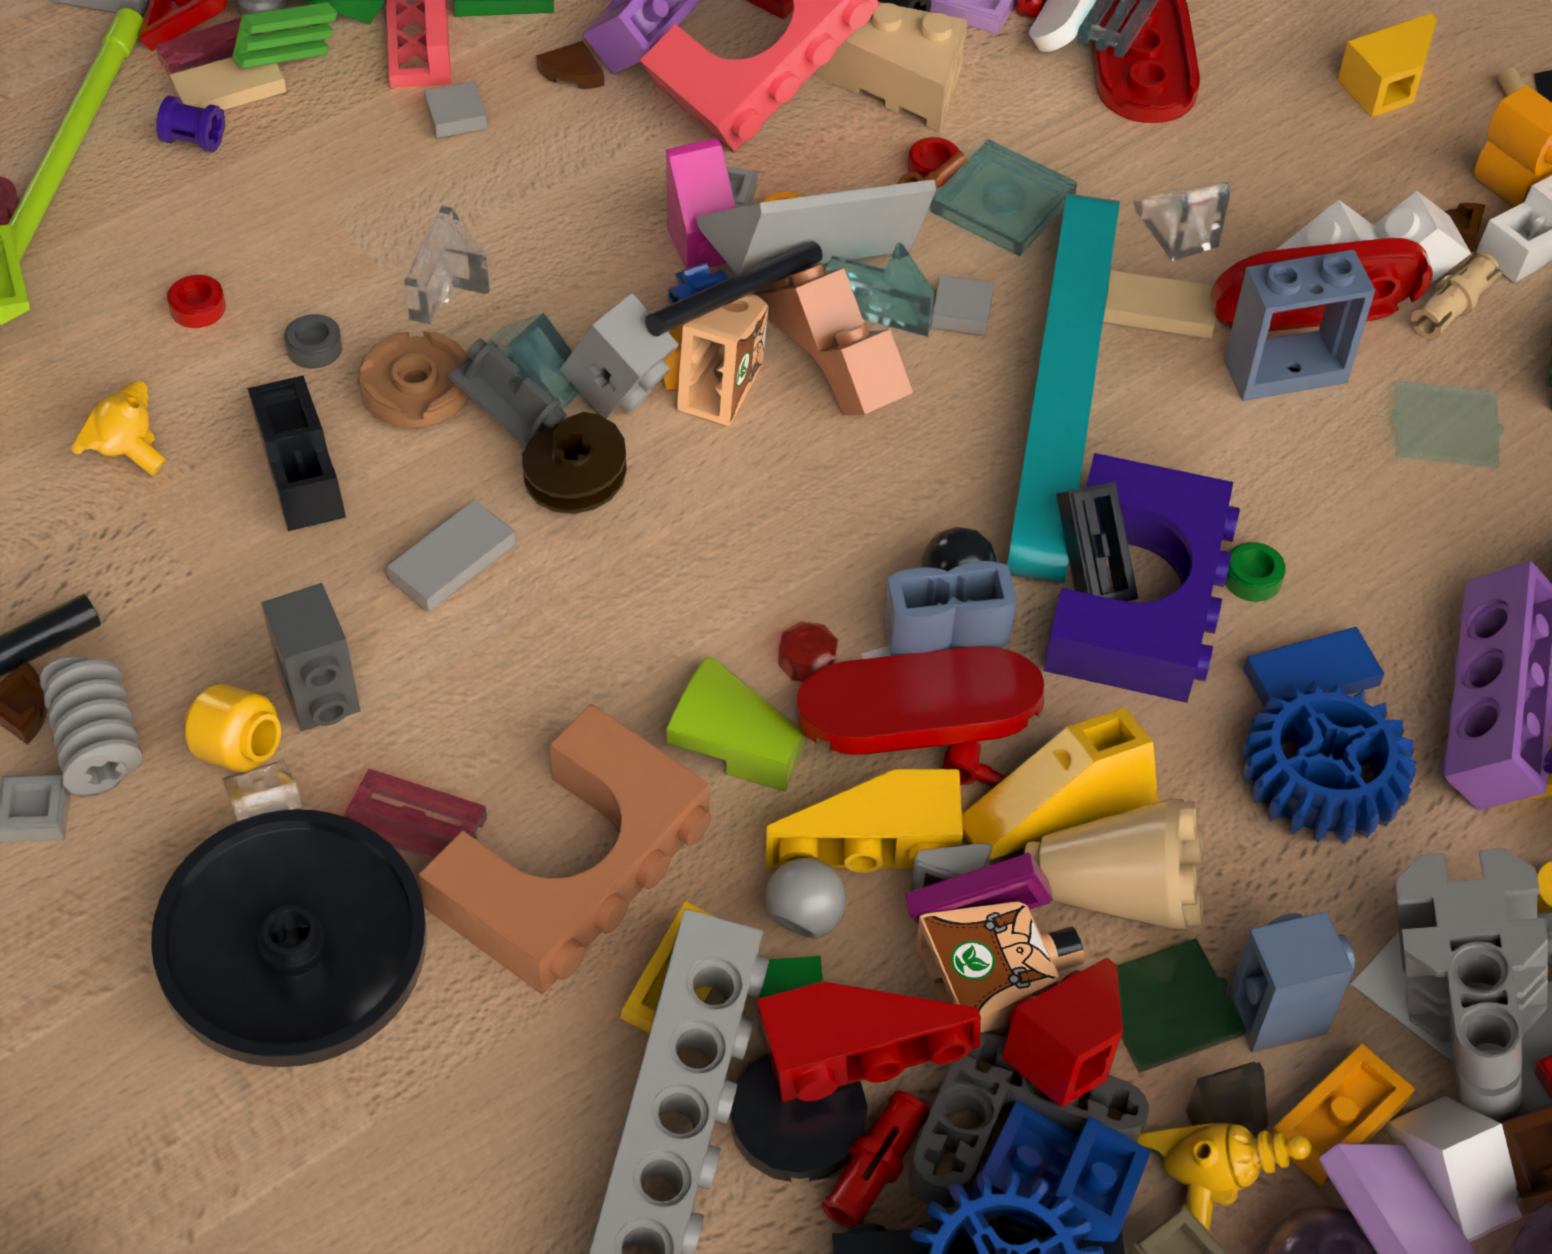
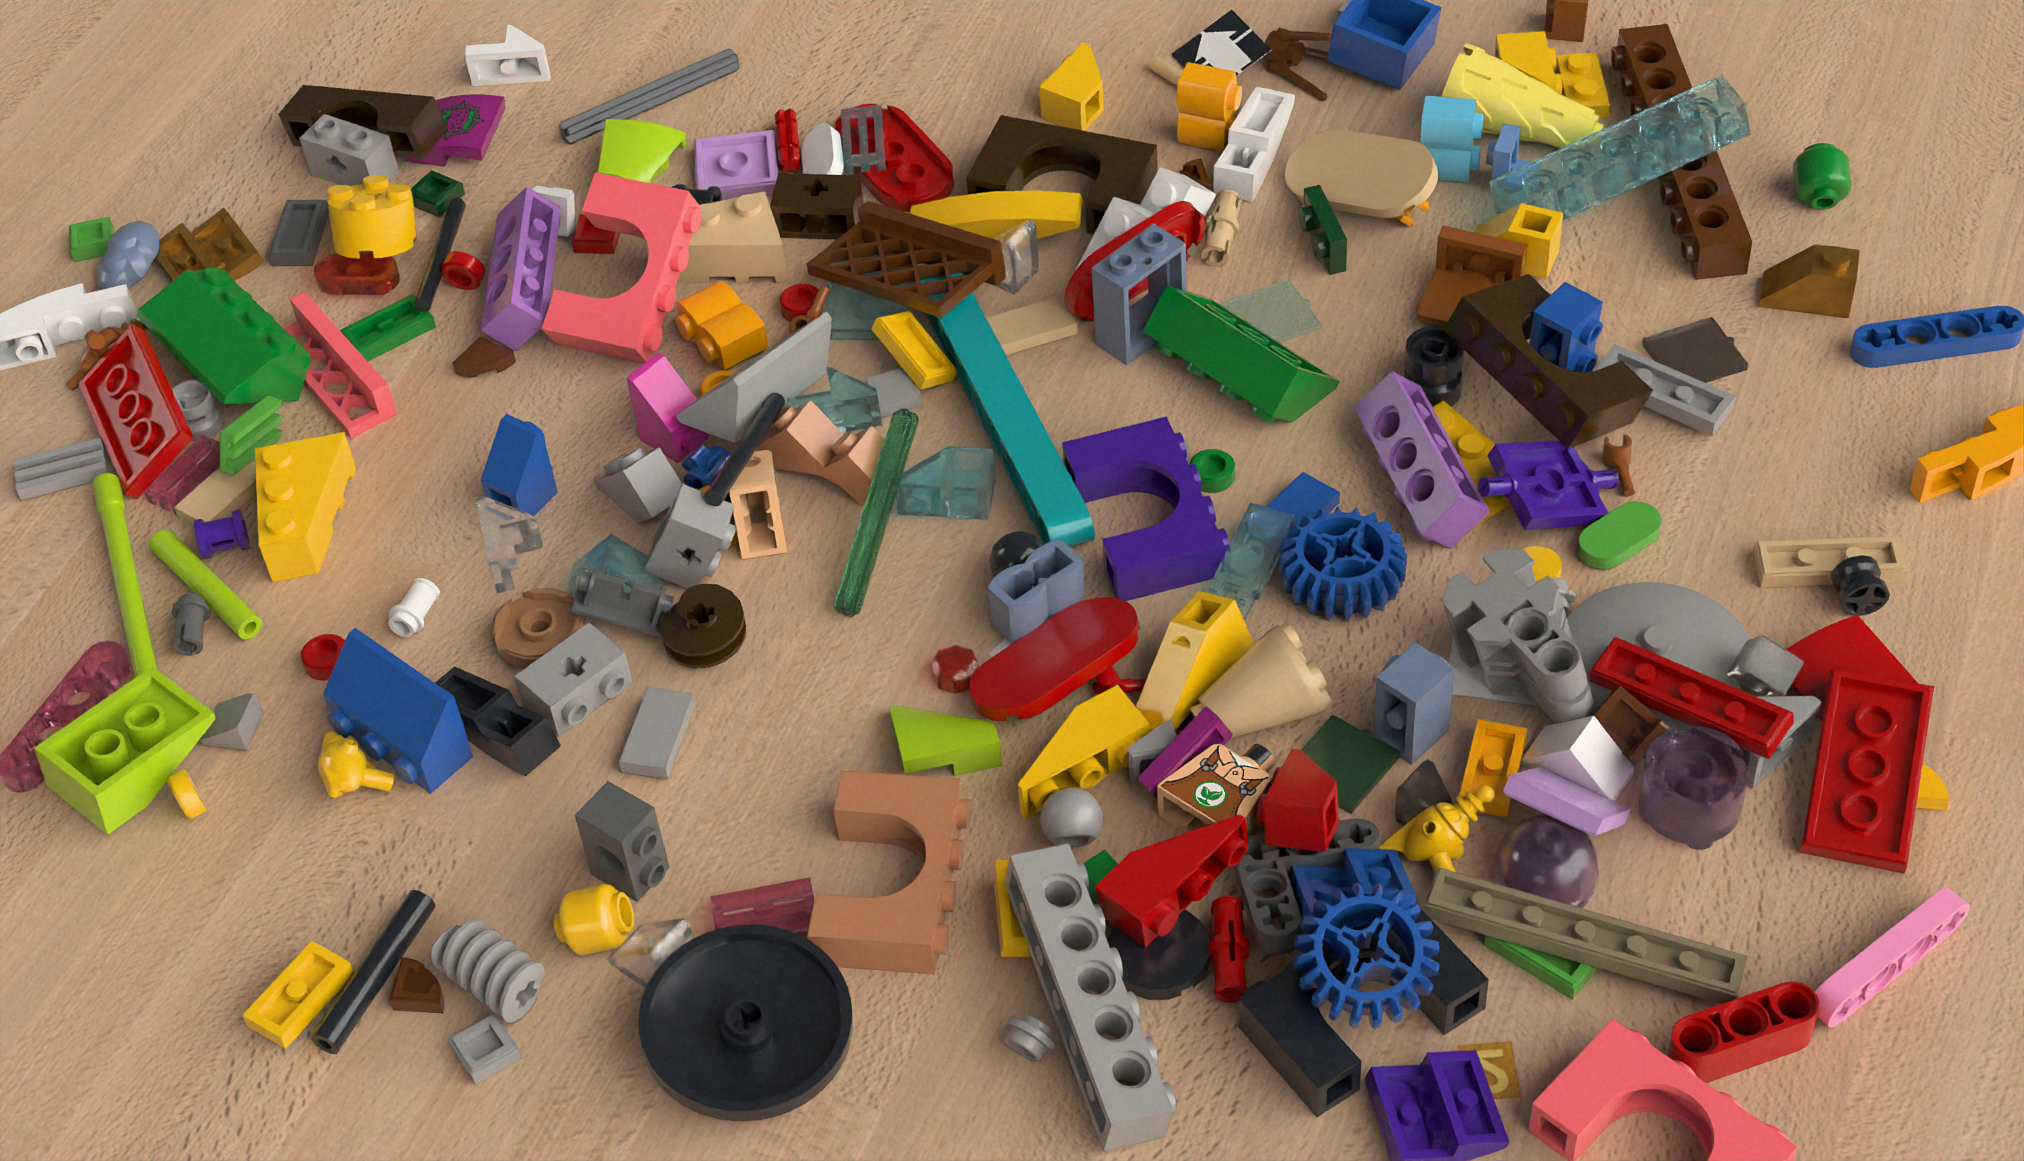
camera: 25 degrees left, 5 degrees down
(61, 325) = (234, 723): none -> light grey slope
(102, 191) = (190, 616): none -> dark grey pin
(141, 168) = (206, 584): none -> lime piece
(198, 399) = (396, 713): none -> blue slope
(278, 125) = (297, 500): none -> yellow wedge
(311, 292) = (408, 616): none -> white pin
(313, 341) = (438, 641): dark grey tile -> none
(406, 451) = (574, 678): none -> light grey brick
(455, 109) = (418, 430): light grey tile -> none
(506, 199) = (519, 467): none -> blue slope
(579, 1134) = (1029, 1038): none -> light grey plate
(624, 268) = (640, 483): none -> light grey slope
(829, 143) = (721, 325): none -> light orange brick
(838, 430) = (876, 513): none -> clear green axle
(945, 438) = (949, 485): none -> clear light blue slope
(1012, 269) = (914, 350): none -> yellow tile
(1020, 63) = (816, 205): none -> dark brown brick
(1089, 547) = (1103, 498): black tile -> none
(1097, 152) = (912, 242): none -> reddish brown fence
(1196, 156) = (1000, 211): none -> yellow slope
(1220, 700) = (1252, 555): none -> clear light blue hinge
(1293, 105) = (1026, 149): none -> dark brown arch
(1372, 460) = (1238, 357): none -> green slope

